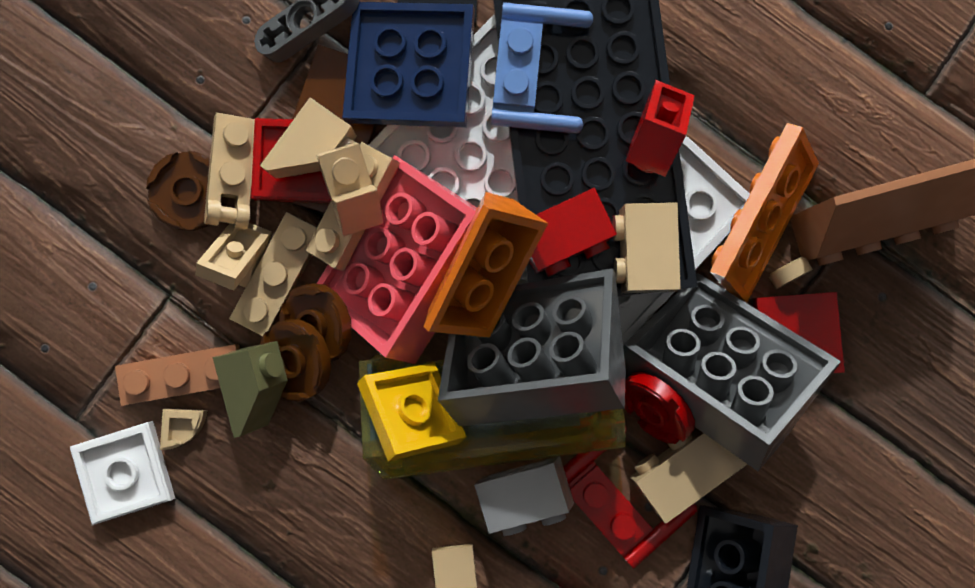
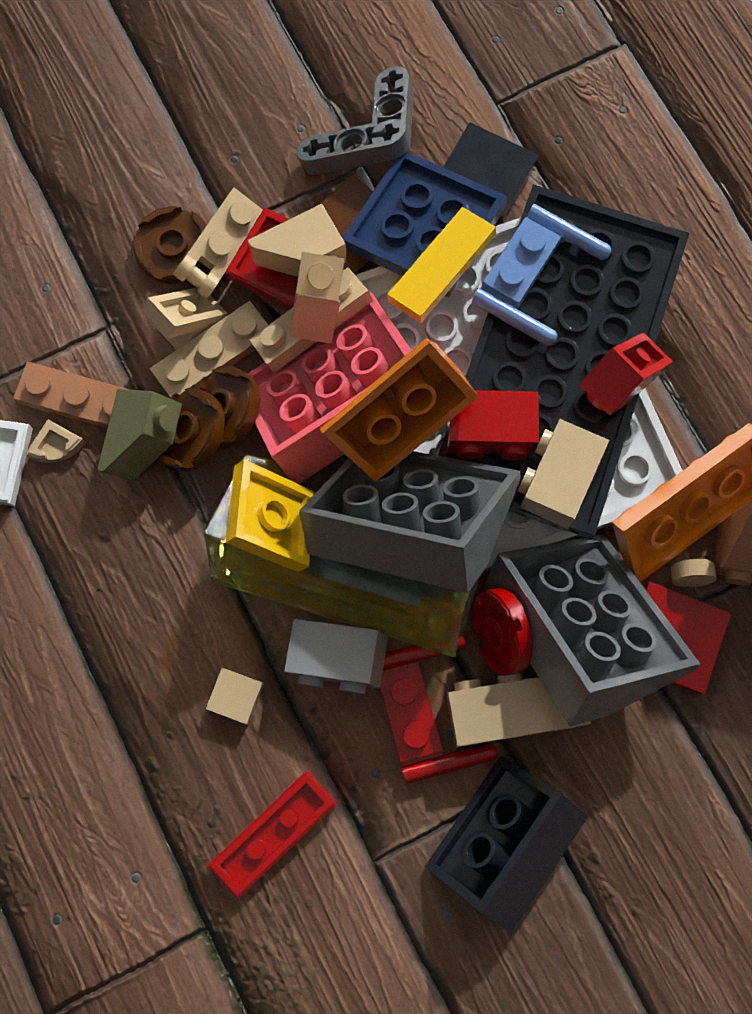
camera: 30 degrees right, 10 degrees down
(447, 102) = (441, 264): none -> yellow tile

